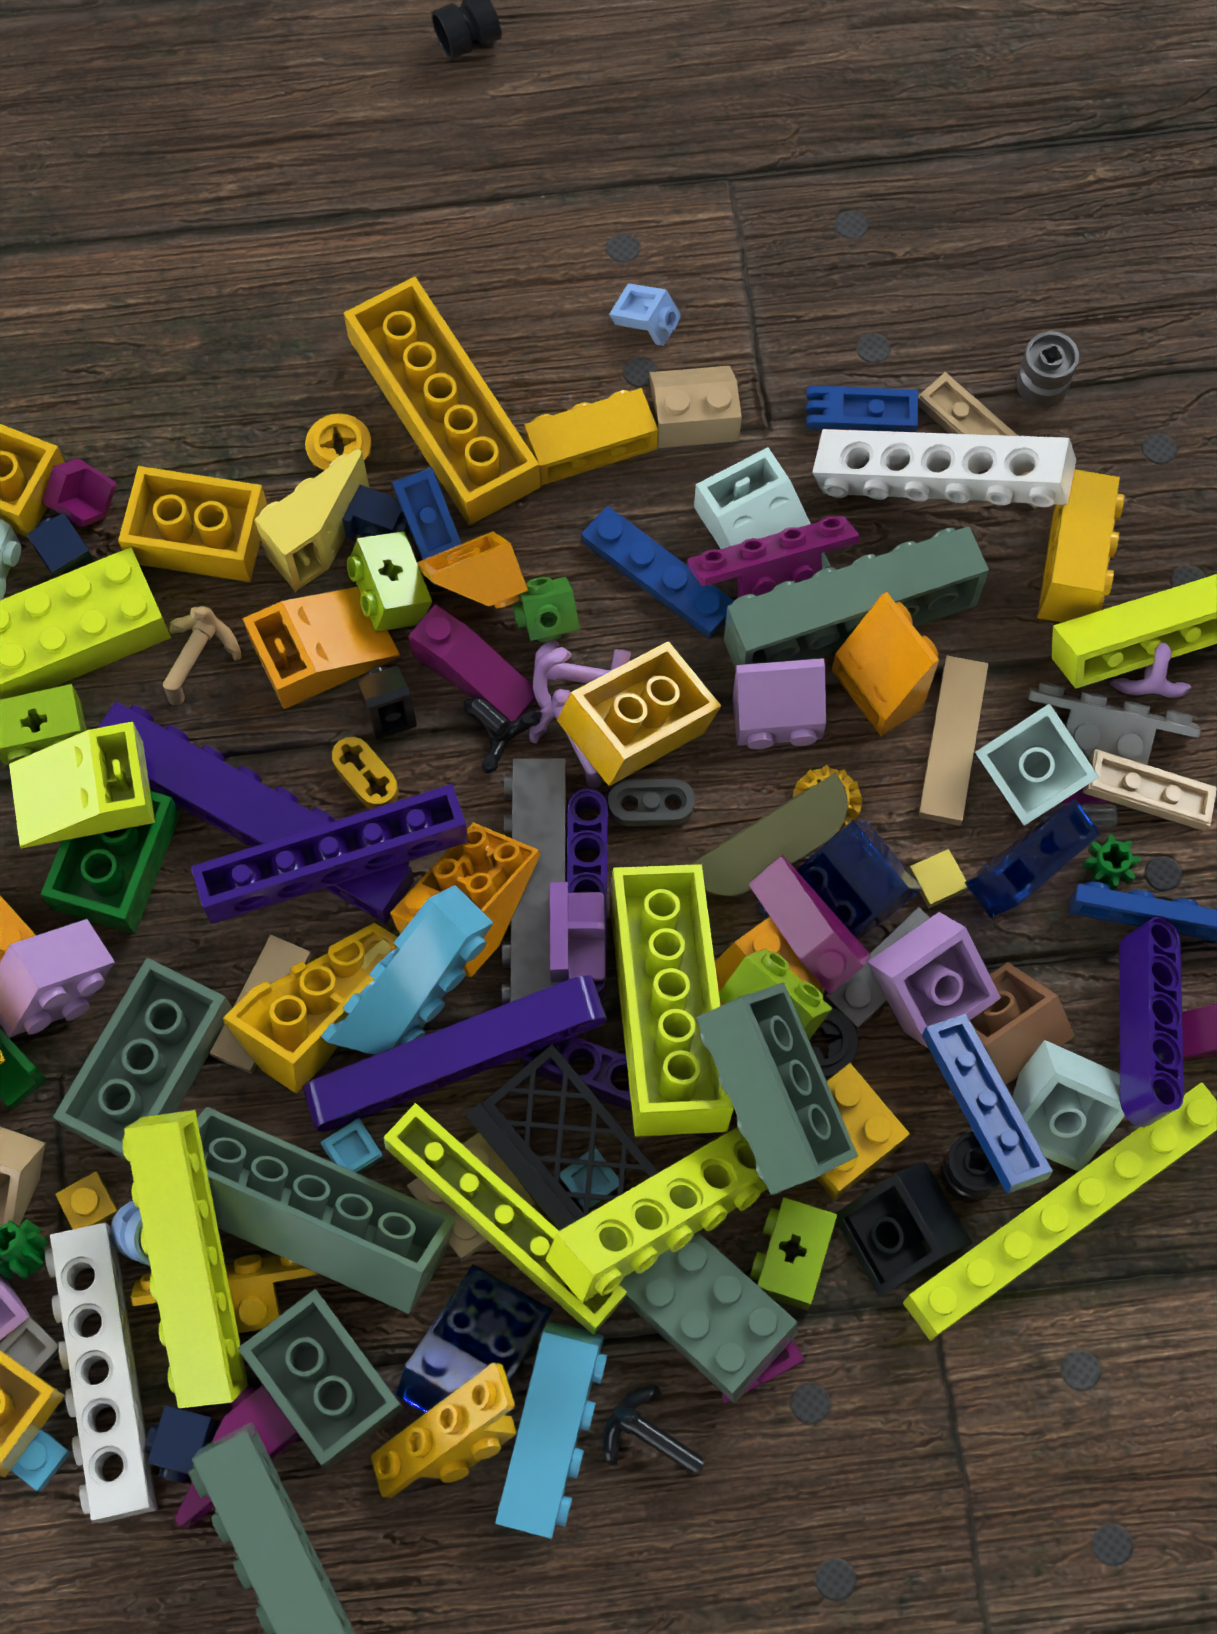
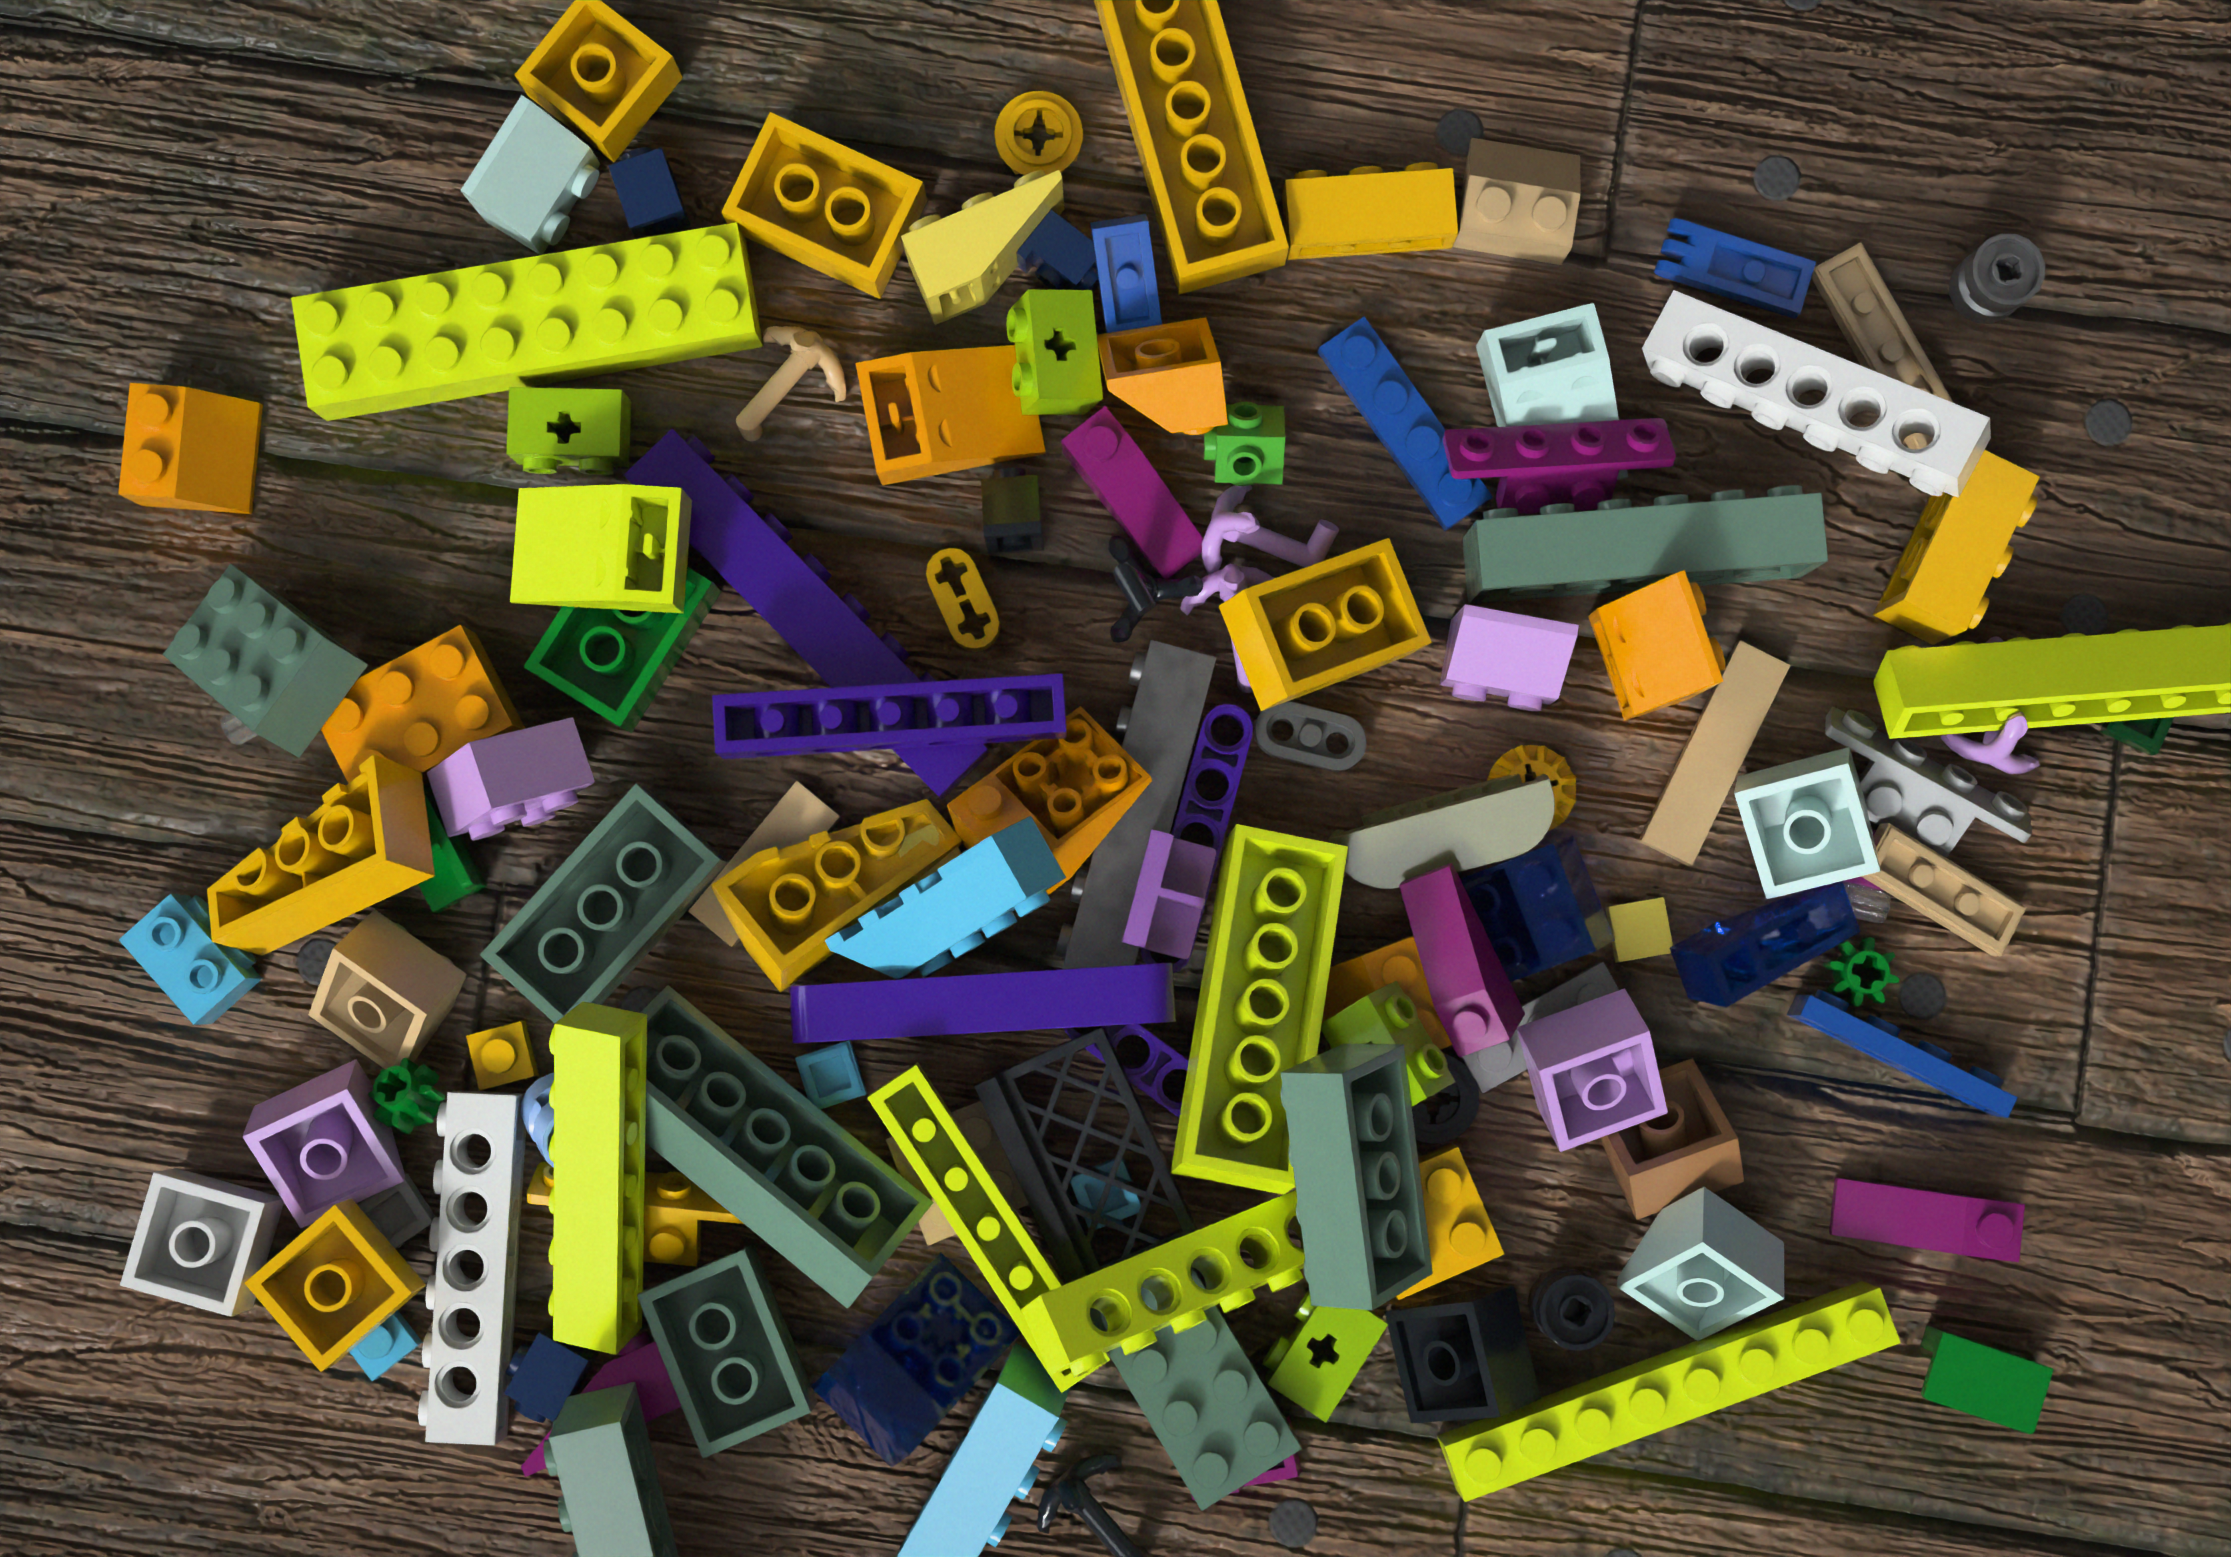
camera: 15 degrees right, 15 degrees up
(79, 492) = (688, 120): magenta panel -> none
(450, 1435) = (857, 1461): yellow bracket -> none
(647, 310) = (1491, 50): light blue bracket -> none
(986, 1103) = (1607, 1248): plate -> none
(1150, 1022) = (1842, 1197): dark purple beam -> none

